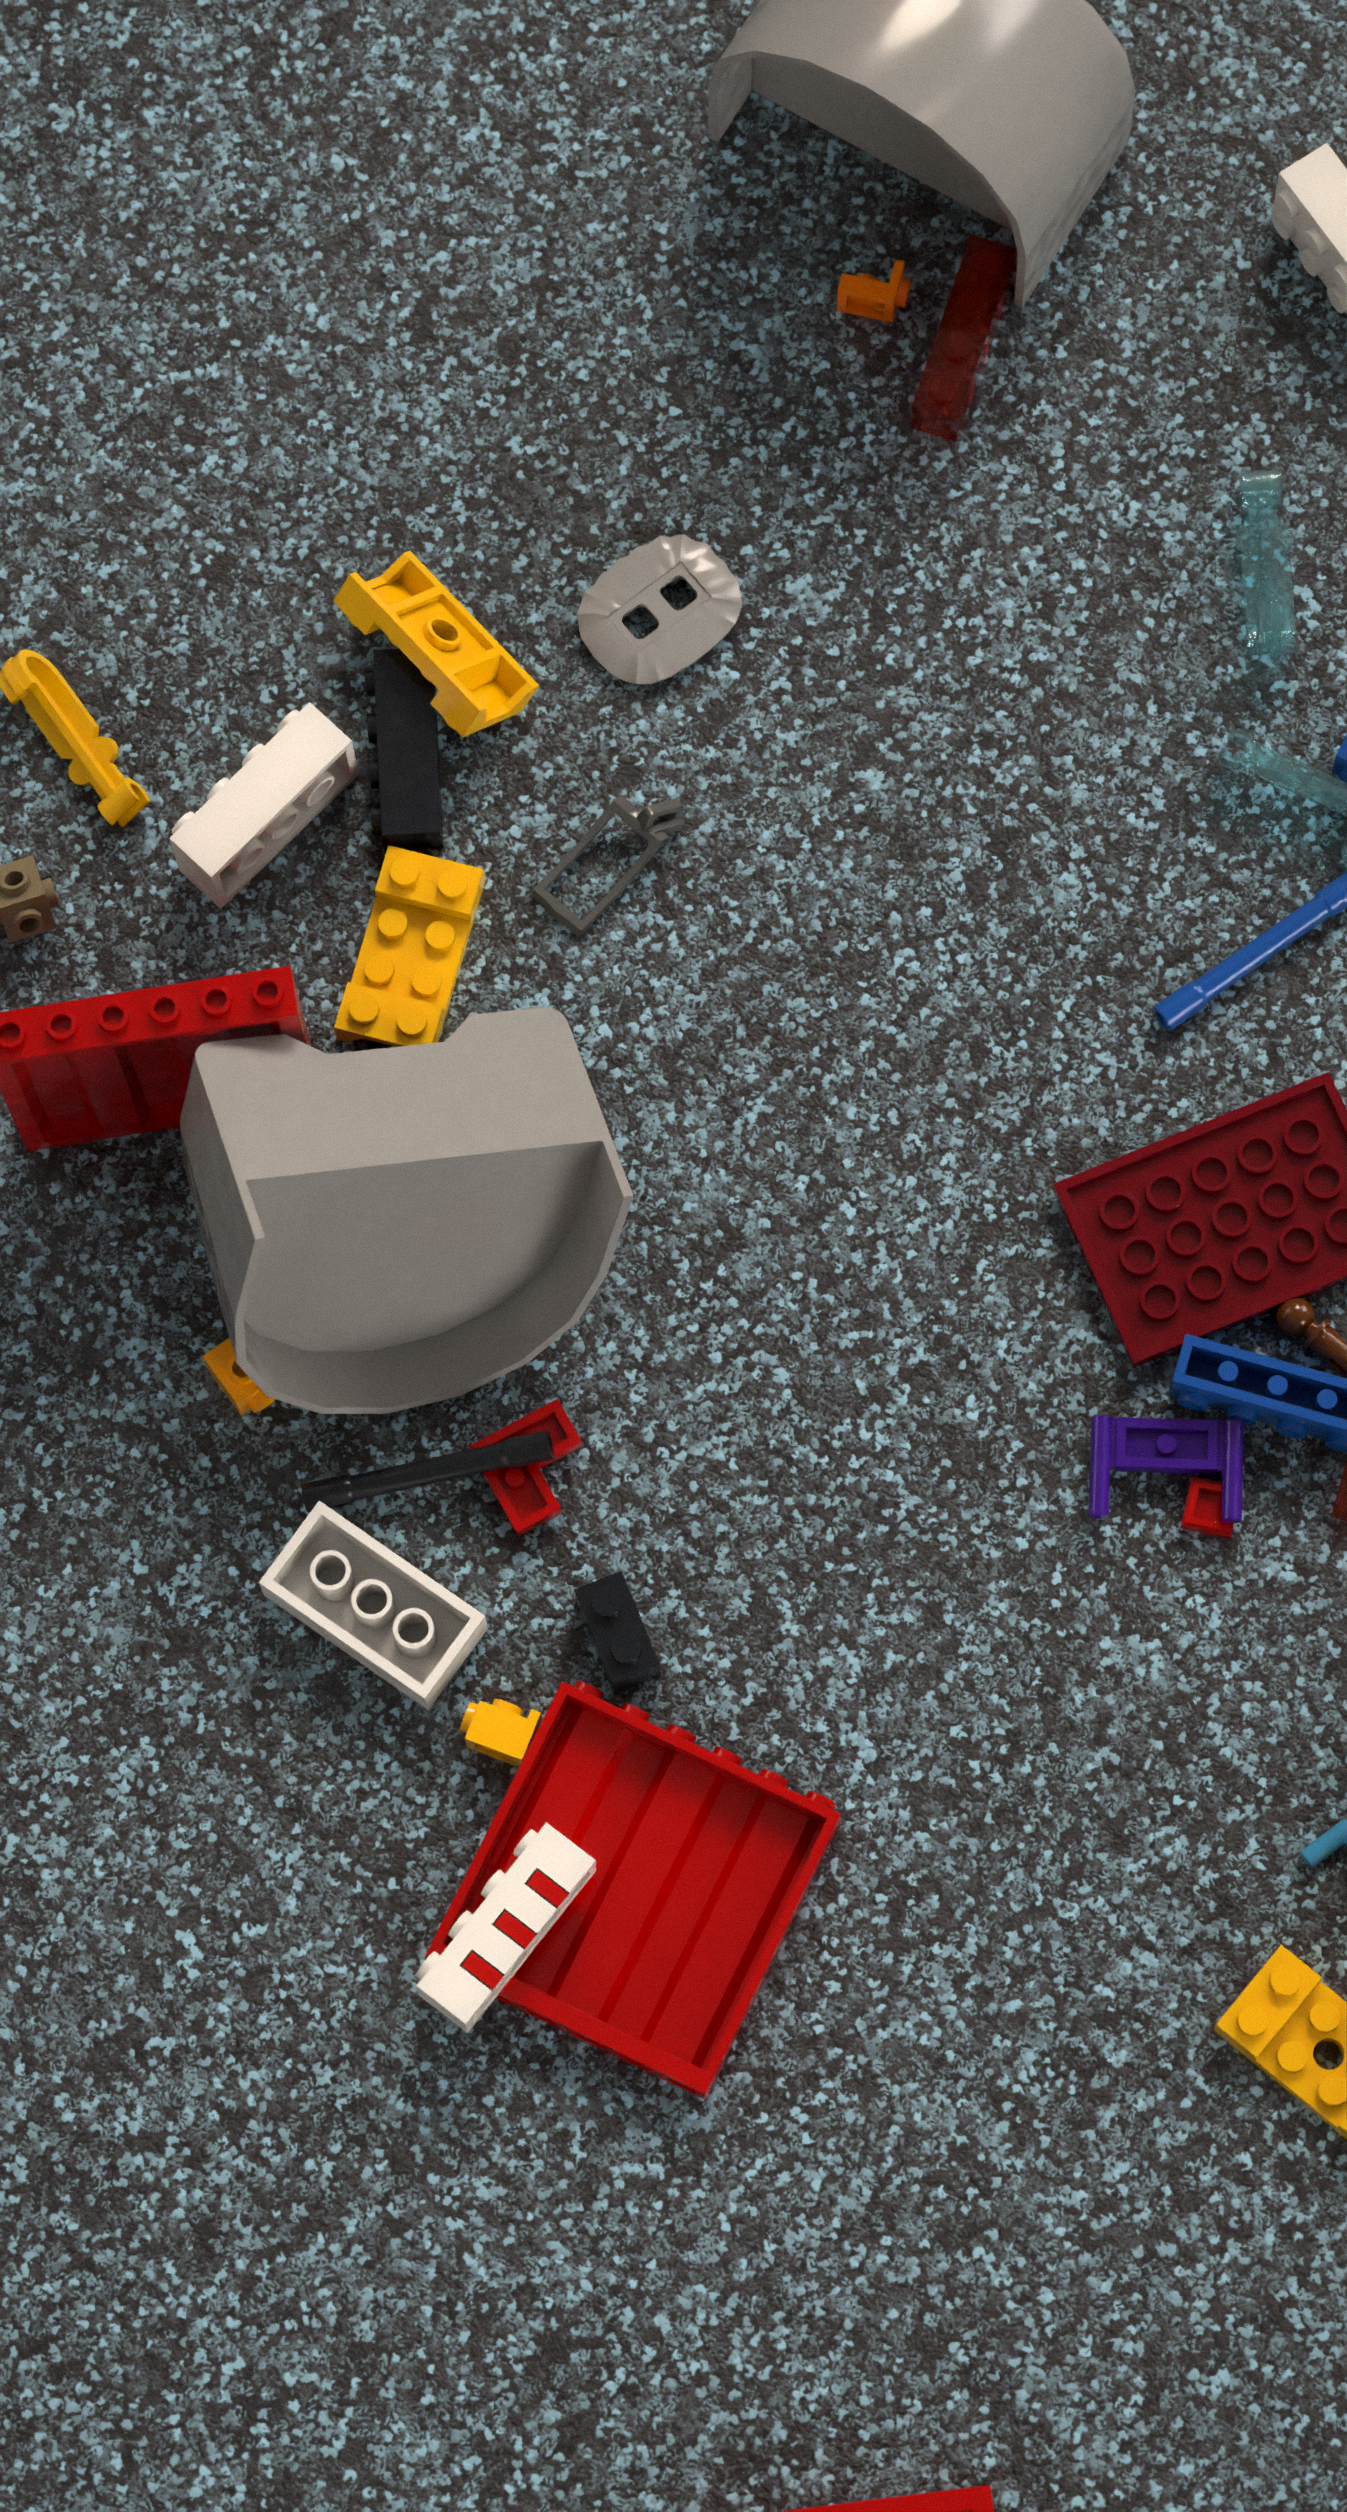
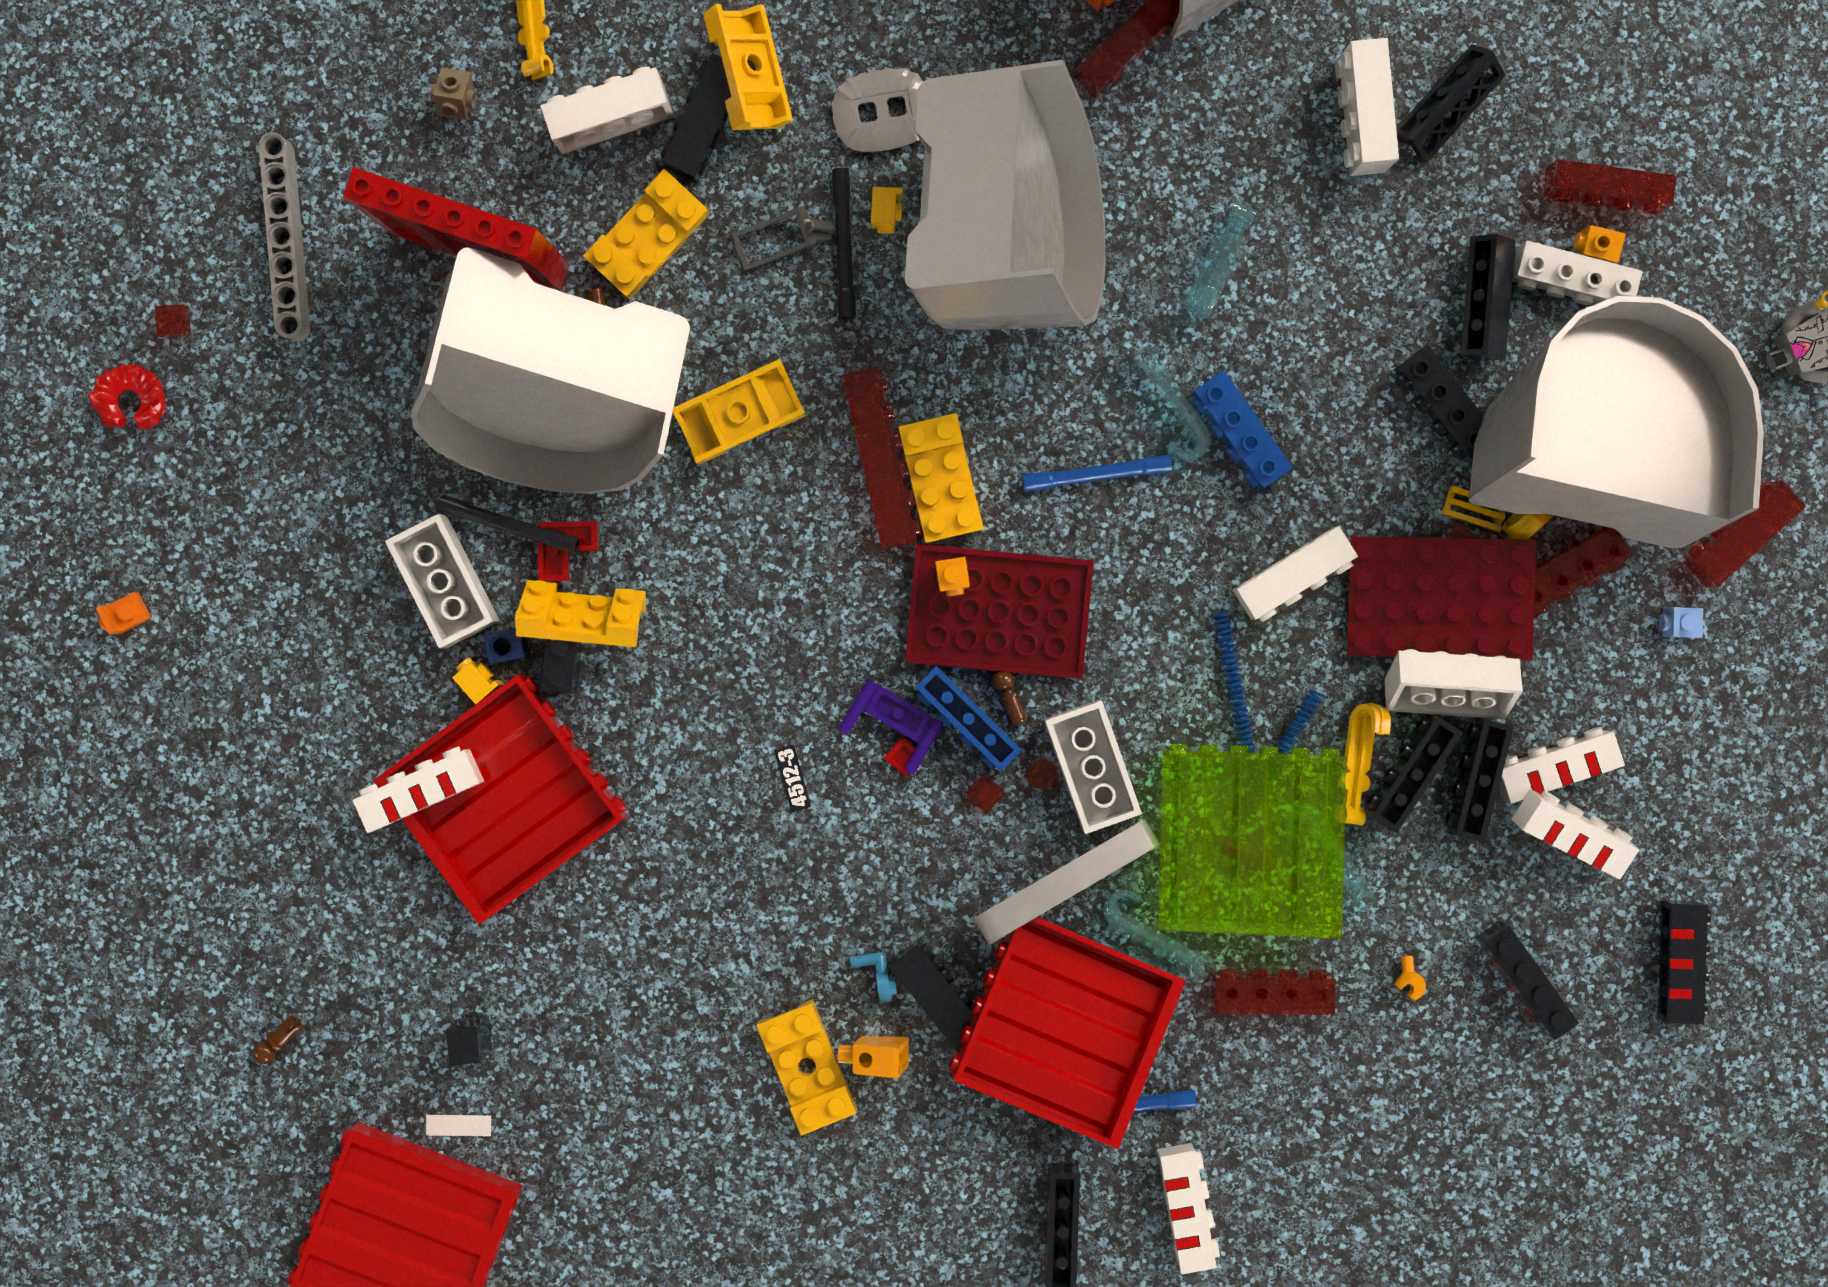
camera: 25 degrees right, 15 degrees up
(469, 2485) = (265, 1051): none -> reddish brown pin
(522, 1634) = (518, 647): none -> dark blue brick
(613, 1548) = (579, 617): none -> yellow piece
(691, 1128) = (738, 411): none -> yellow piece
(742, 739) = (886, 209): none -> yellow brick
(747, 885) = (841, 195): none -> black piece
(784, 2279) = (469, 1039): none -> black brick
(835, 2447) = (458, 1125): none -> white sticker
(921, 617) = (1007, 202): none -> light grey piece
(933, 1092) = (879, 458): none -> clear red brick
(1035, 1074) = (940, 478): none -> yellow piece
(1060, 1631) = (792, 778): none -> black sticker
(1135, 1193) = (952, 576): none -> light orange brick

